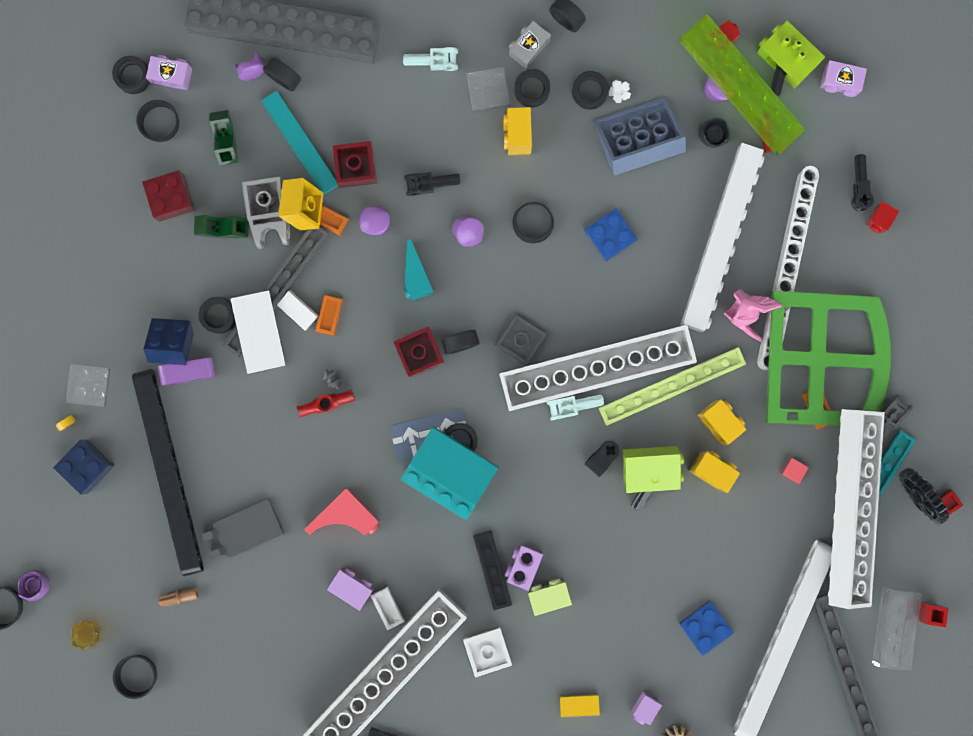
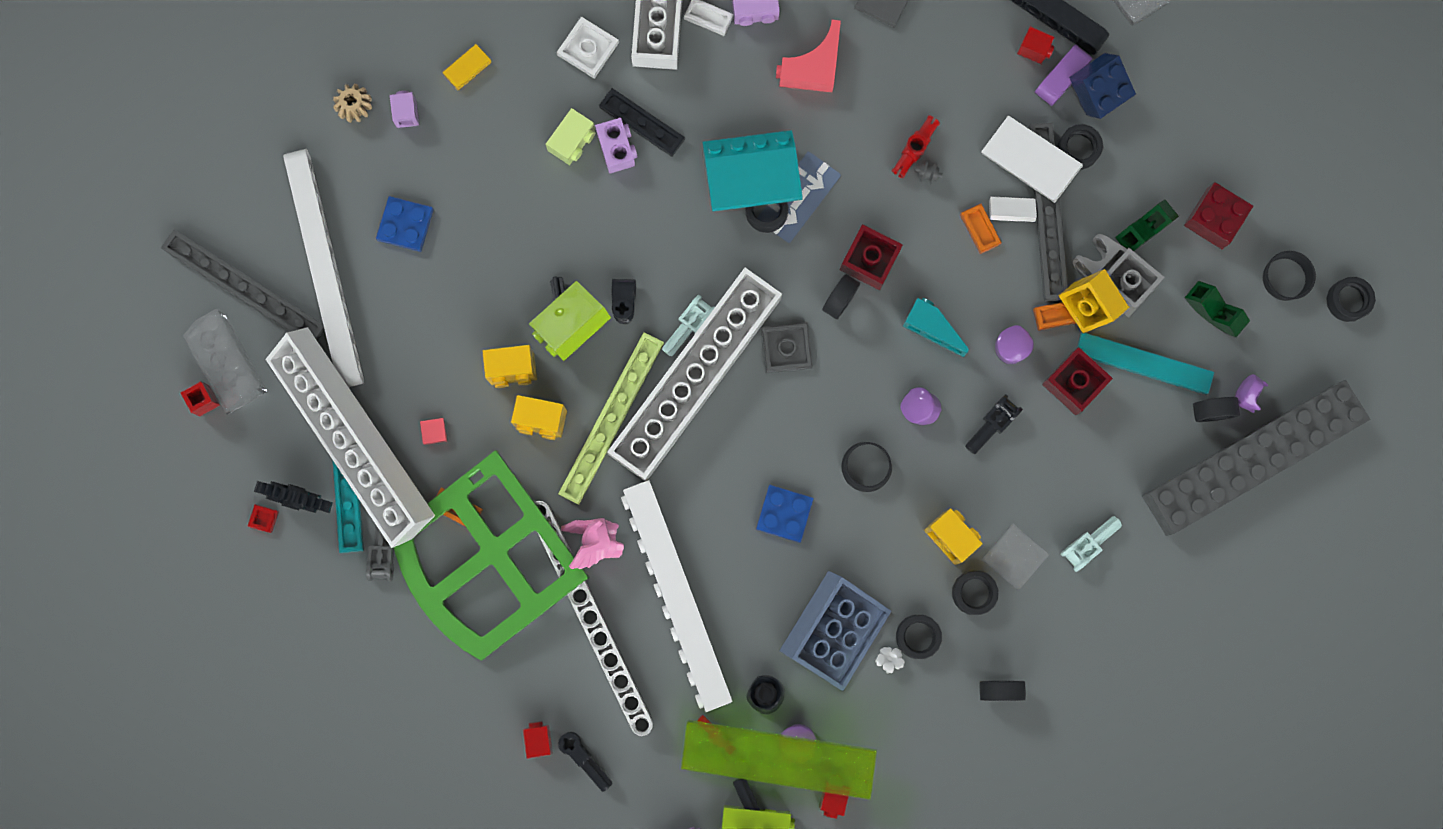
camera: 135 degrees right, 5 degrees down
(169, 72) = (1318, 328): lavender brick -> none
(186, 406) = (1036, 45): none -> red brick
(529, 44) = (1013, 632): light grey brick -> none

